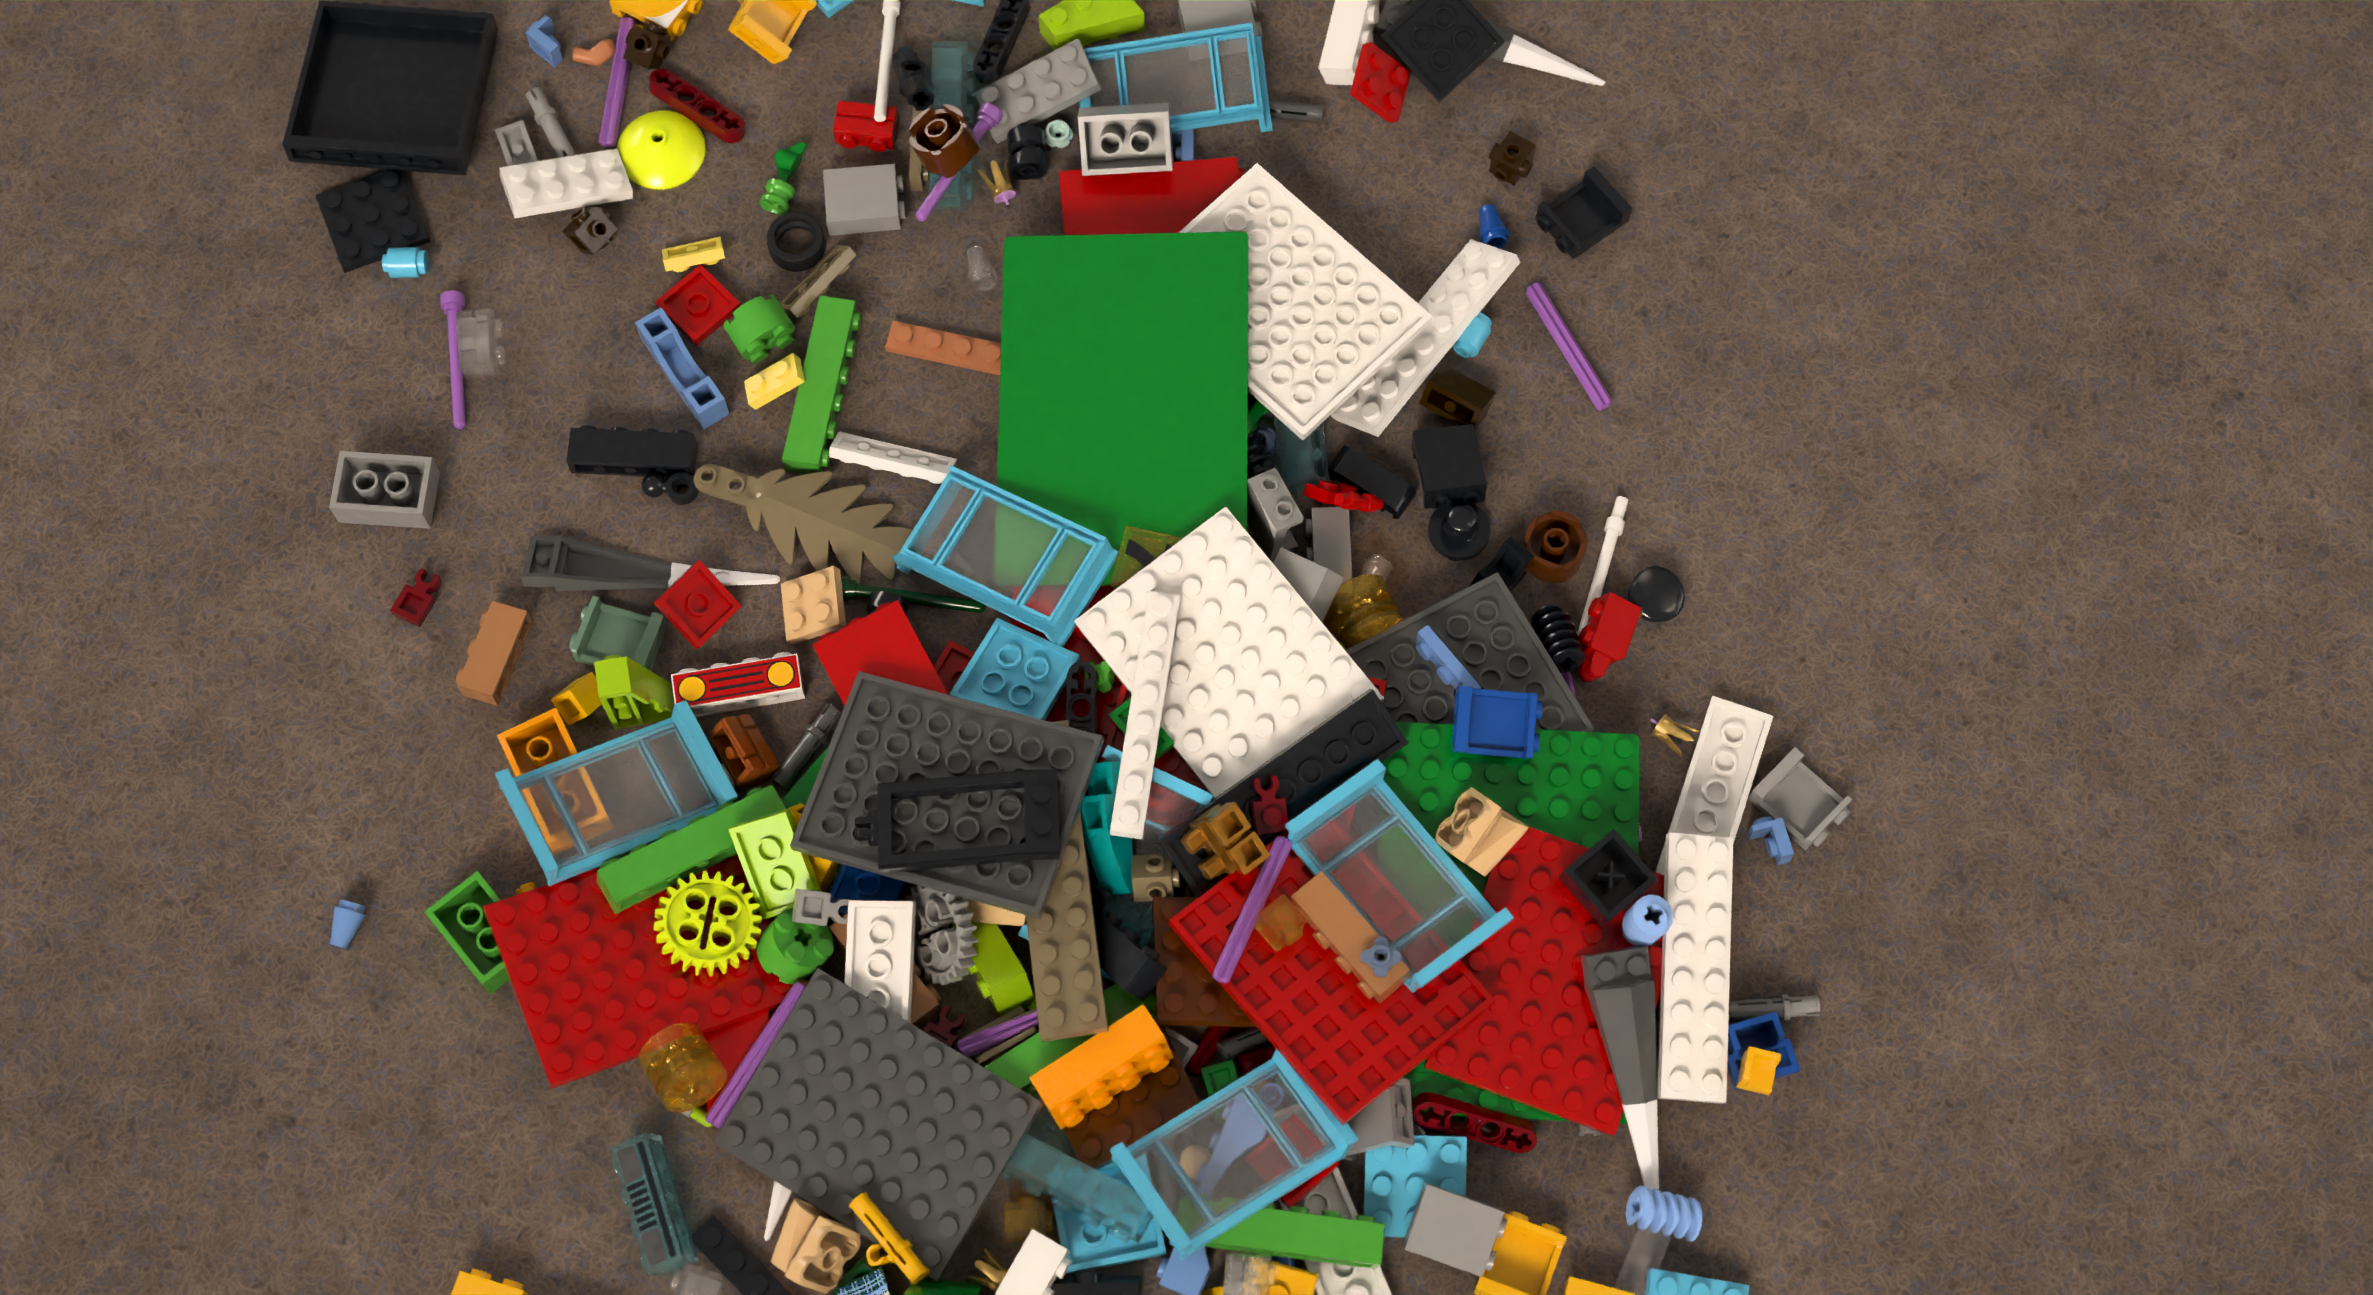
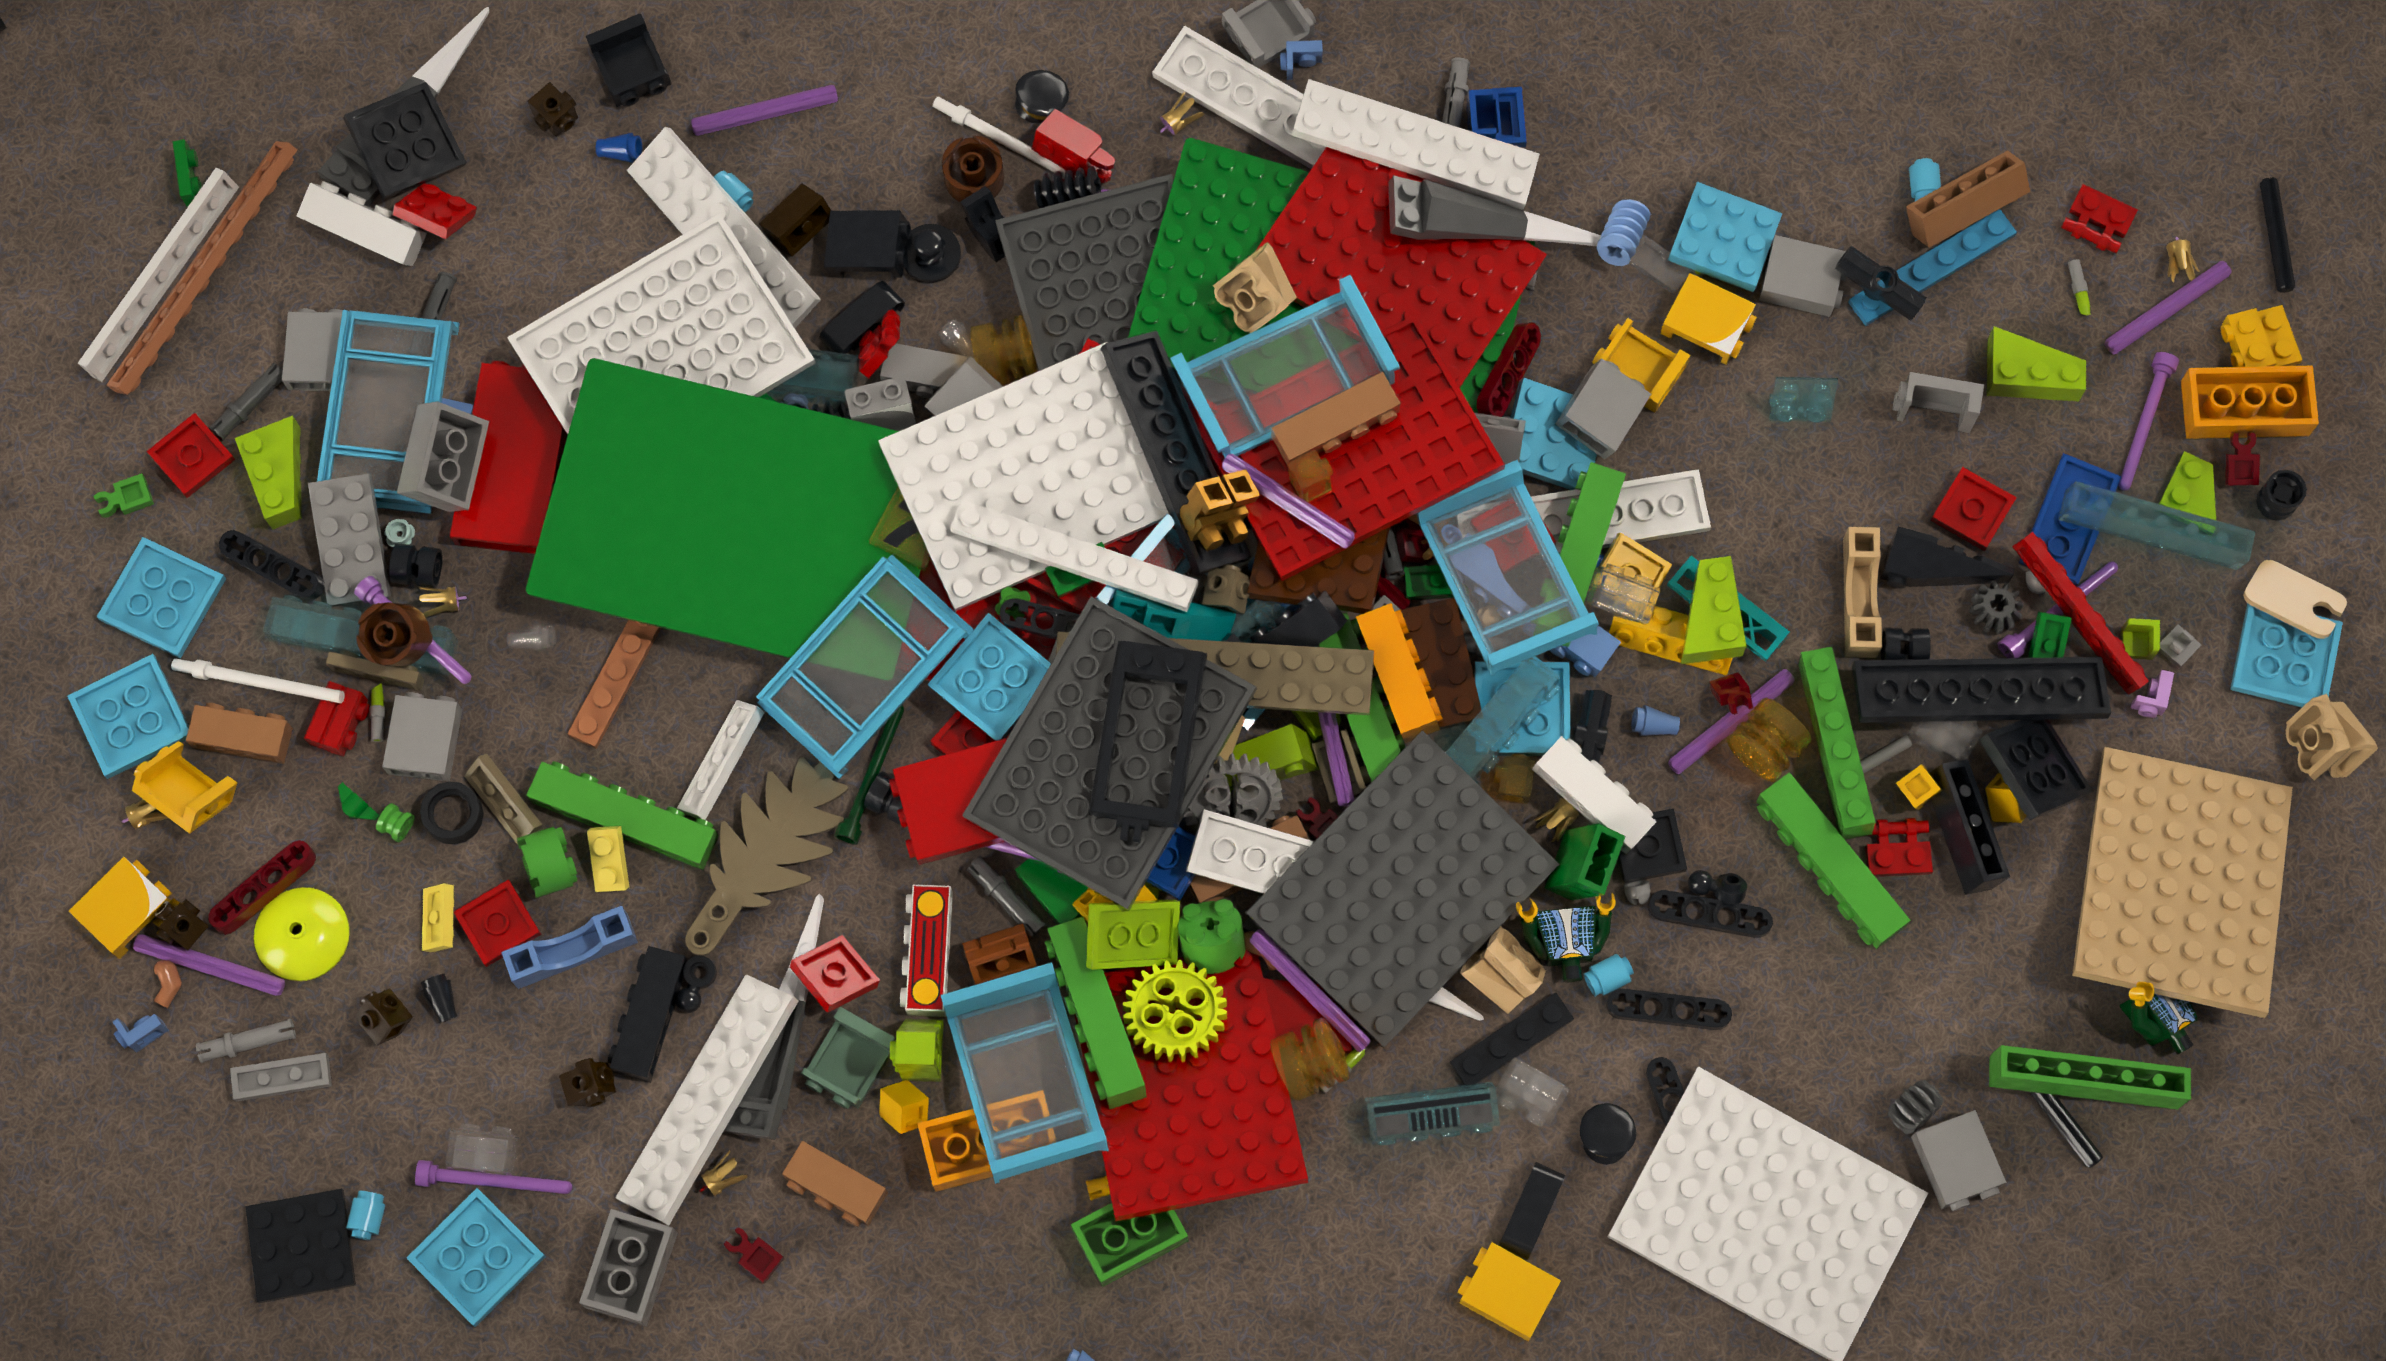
camera: 75 degrees left, 5 degrees up
(381, 362) = (476, 1257): none -> medium azure plate
(391, 87) = (151, 1199): black panel -> none
(483, 546) = (713, 1177): none -> pearl gold piece
(555, 414) = (588, 1083): none -> dark brown brick
(558, 522) = (707, 1099): none -> white plate
(565, 183) = (322, 1032): white plate -> none
(620, 273) = (439, 996): none -> black cone
(813, 605) = (861, 863): tan plate -> none
(815, 908) = (1186, 902): light grey plate -> none
(836, 51) = (239, 733): none -> medium nougat brick
(882, 158) = (377, 714): none -> light grey piece
(897, 1249) = (1516, 894): yellow pin -> none
(912, 78) = (303, 657): black piece -> none
(1270, 811) = (1191, 463): dark red plate -> none
(1380, 967) = (1367, 400): sand blue plate -> none
(1447, 665) = (1085, 282): medium blue plate -> none
(1495, 723) = (1154, 250): blue panel -> none
(1607, 878) = (1326, 190): black brick -> none
(1642, 932) = (1373, 167): light blue piece -> none
(1758, 1070) = (1518, 120): yellow panel -> none

